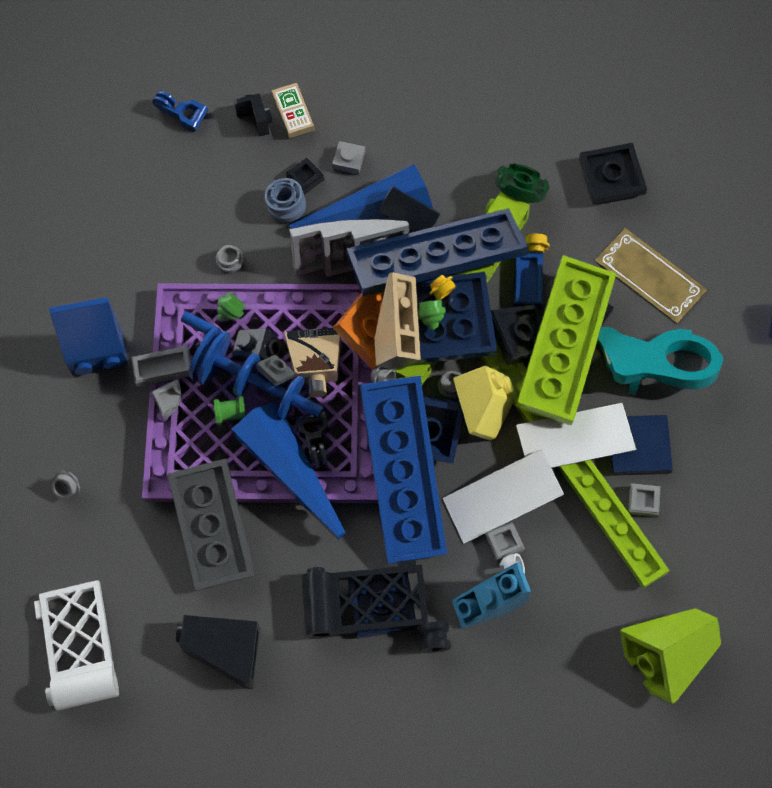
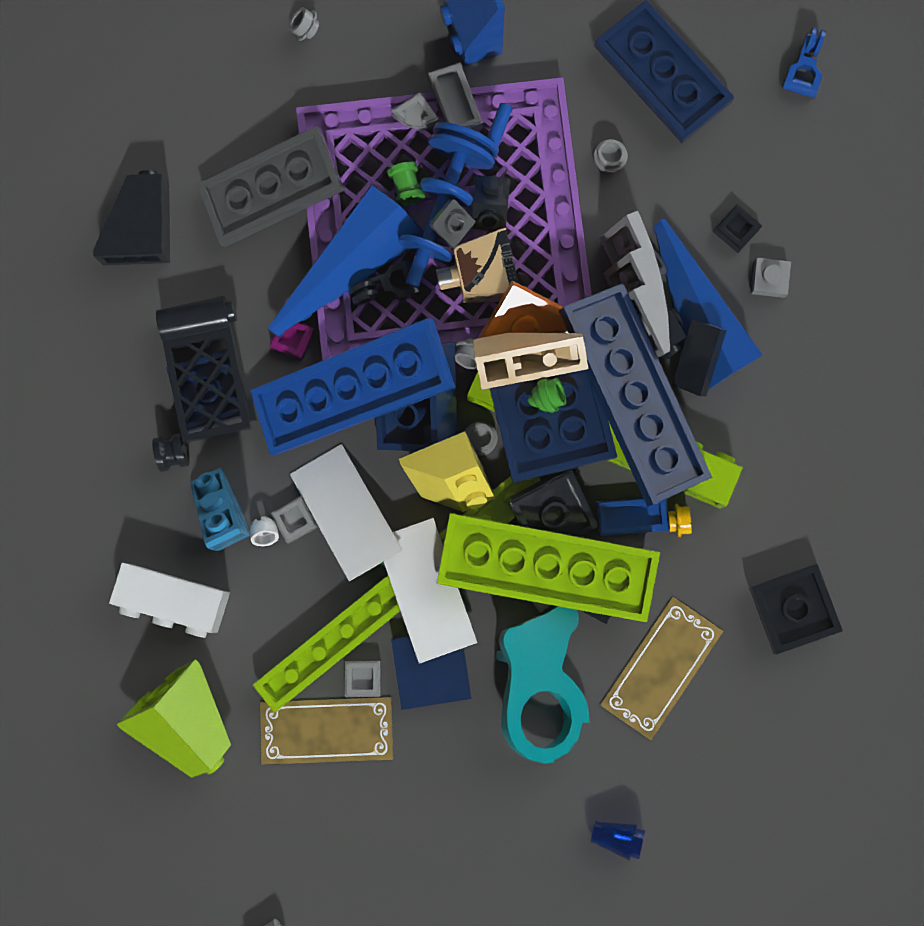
camera: 85 degrees right, 15 degrees up
(83, 683) = (83, 82): white piece -> none
(166, 210) = (664, 71): none -> dark blue plate
(230, 307) = (538, 163): bright green plate -> none
(253, 105) = (813, 159): black bracket -> none
(286, 210) = (702, 195): sand blue wheel -> none
(293, 110) = (828, 200): tile -> none
(352, 525) = (294, 341): none -> magenta tile
(442, 287) = (582, 404): yellow plate -> none
(521, 183) = (760, 493): dark green tile -> none
(565, 651) = (169, 600): none -> white brick
(686, 536) = (327, 731): none -> pearl gold sticker

